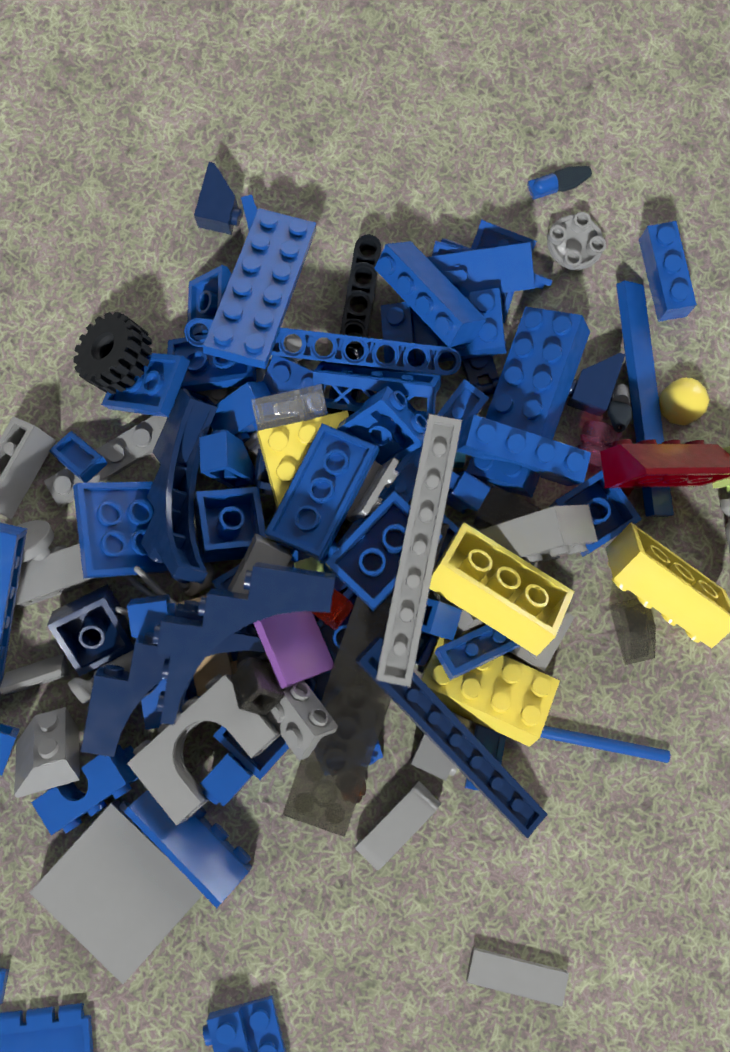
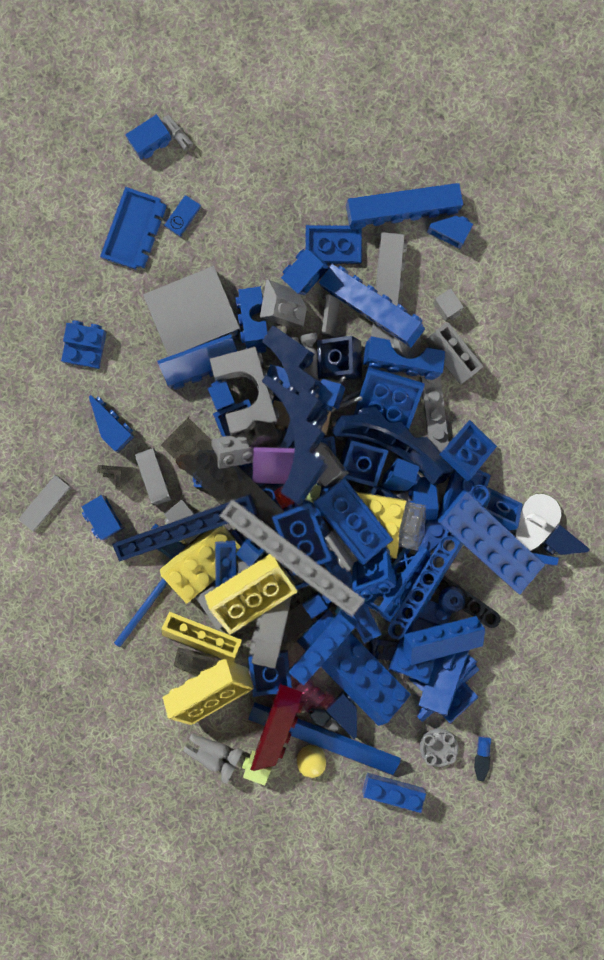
camera: 115 degrees right, 5 degrees up
(57, 567) = (381, 354): none -> blue arch
(78, 457) = (443, 393): blue tile -> none
(112, 352) = (488, 447): black tyre -> none
(200, 247) = (537, 520): none -> white shield
(356, 930) = (110, 429): none -> blue slope
(367, 310) = (451, 593): none -> dark blue cone
(416, 874) = (123, 474): none -> clear smoke slope
(496, 874) = (102, 518): none -> blue brick
(596, 636) = (201, 637): none -> light yellow brick

